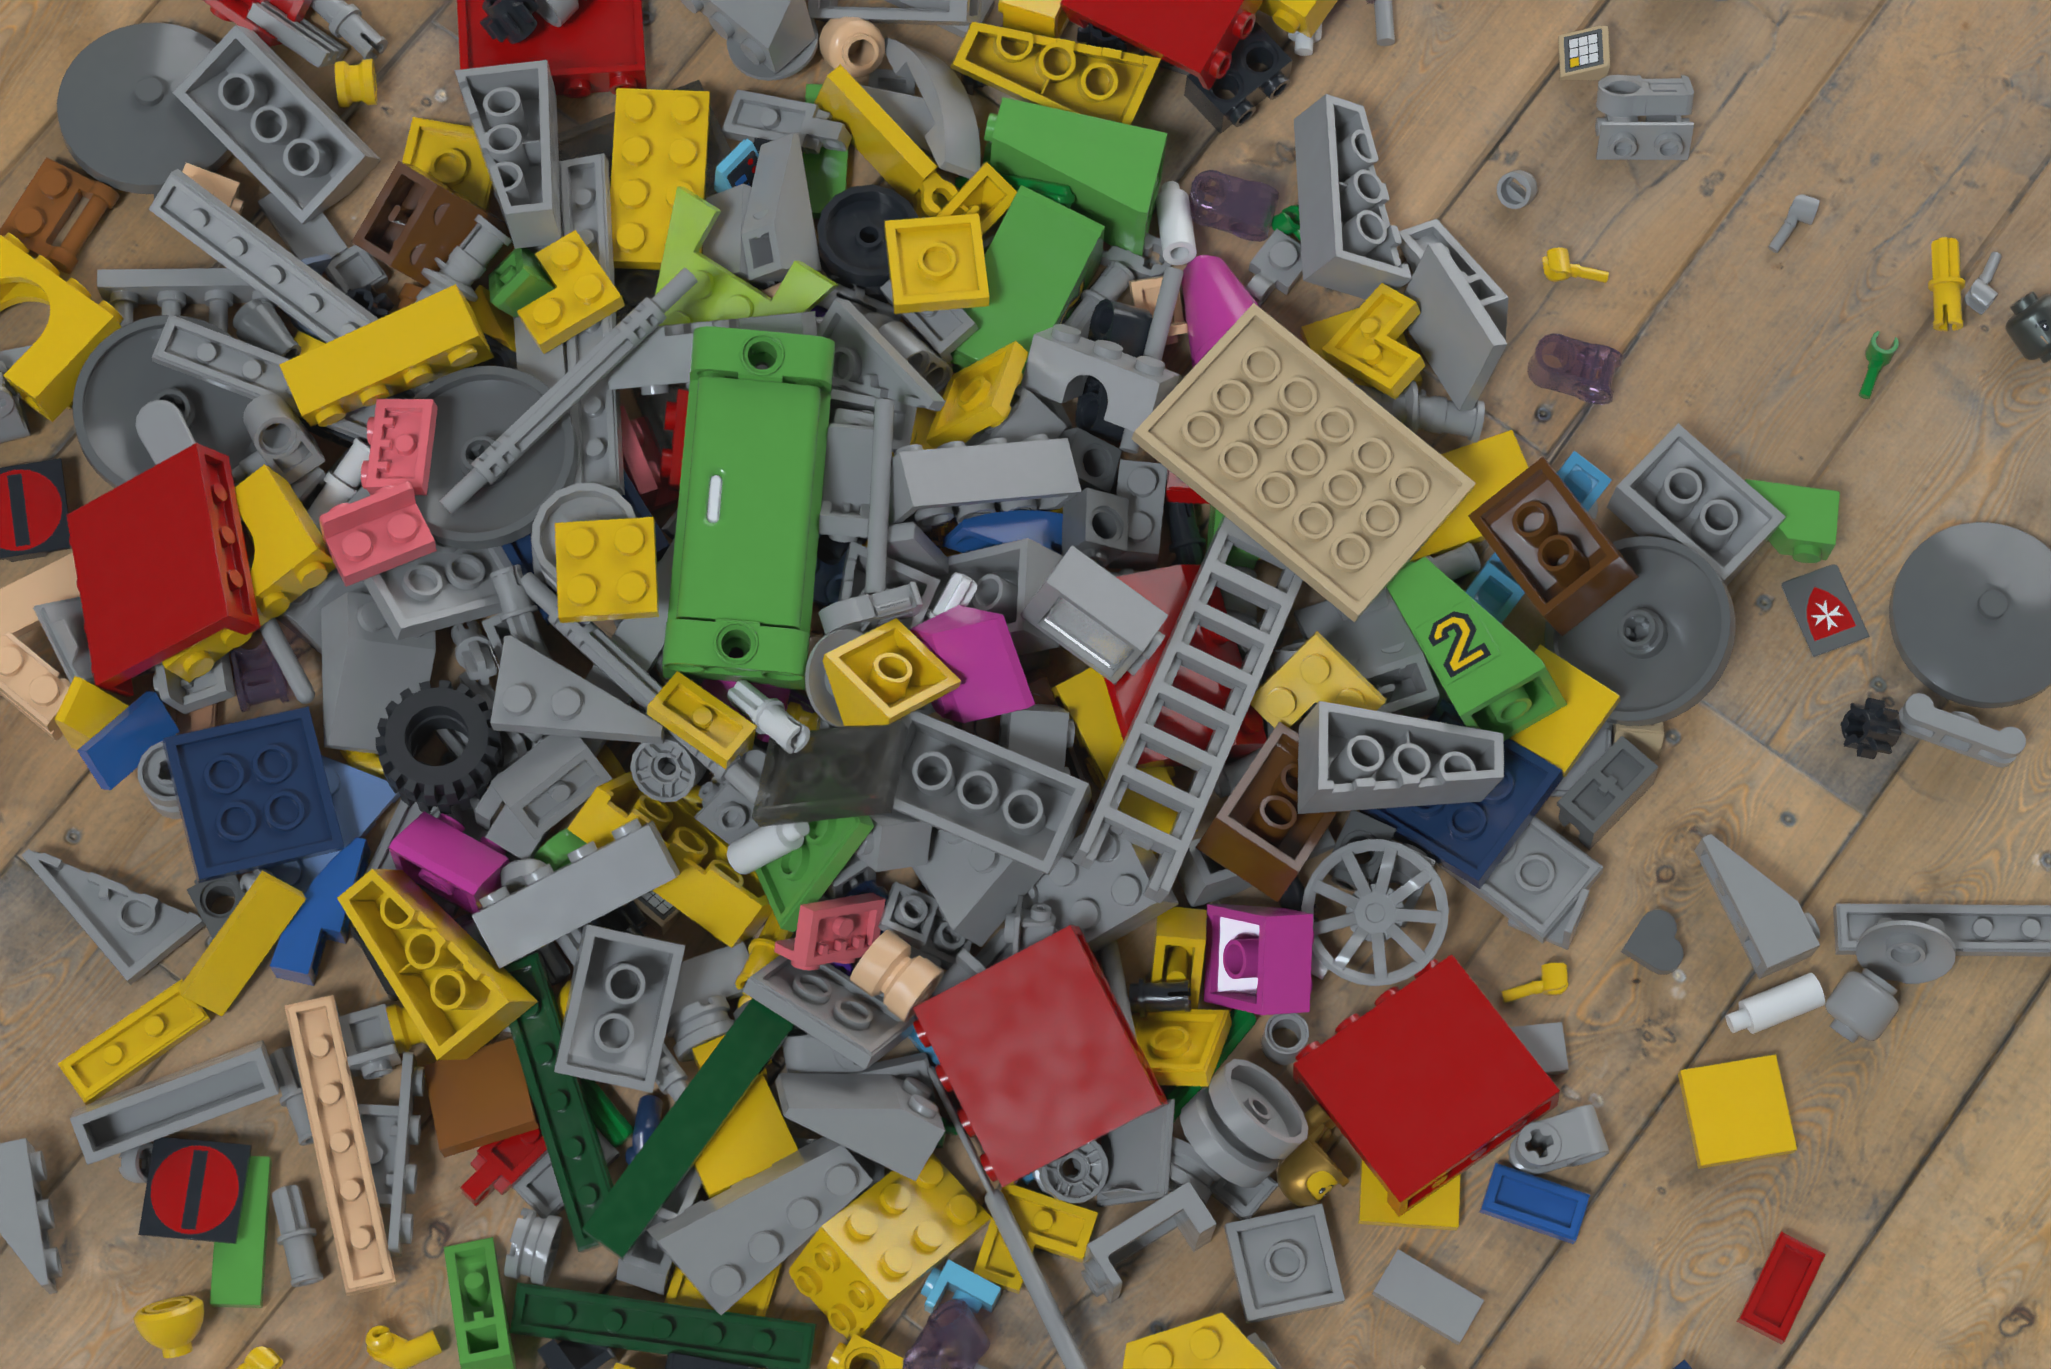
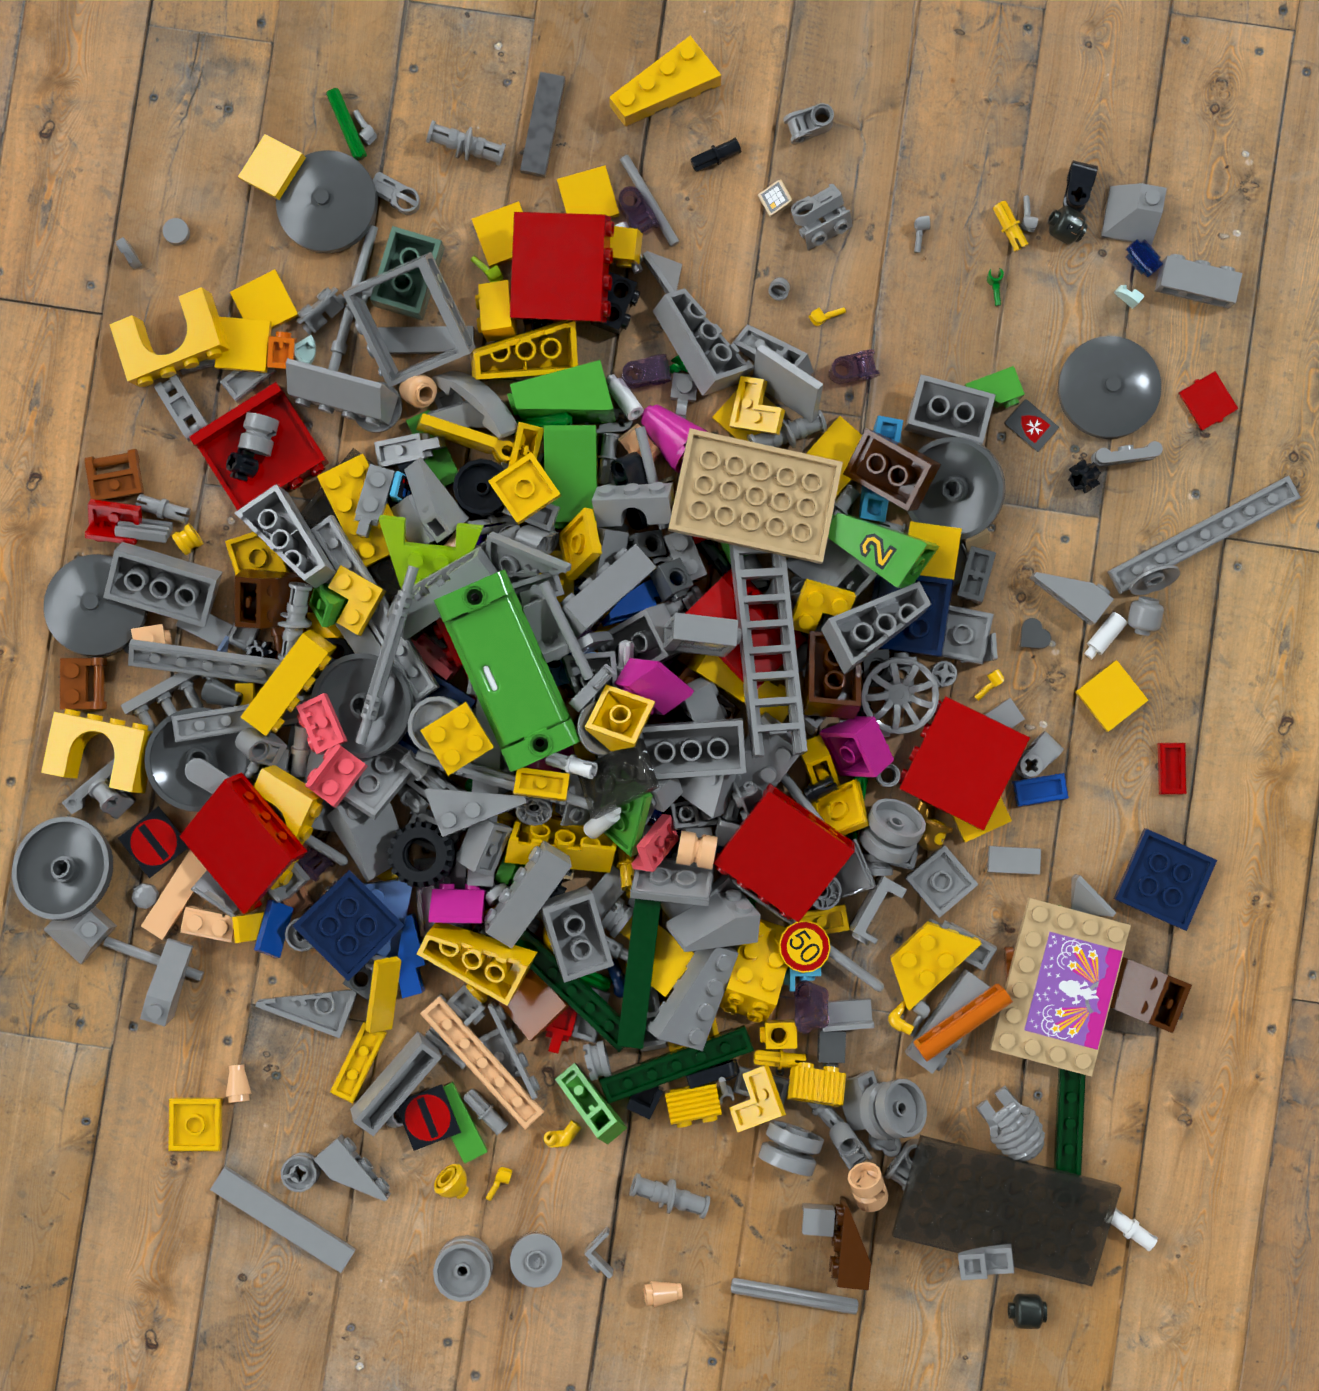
camera: 20 degrees left, 15 degrees up
(685, 162) = (373, 498): none -> light grey hinge
(990, 1237) = (804, 946): none -> piece
(1345, 69) = (664, 270): none -> light grey slope
(1472, 915) = (947, 674): none -> light grey wheel

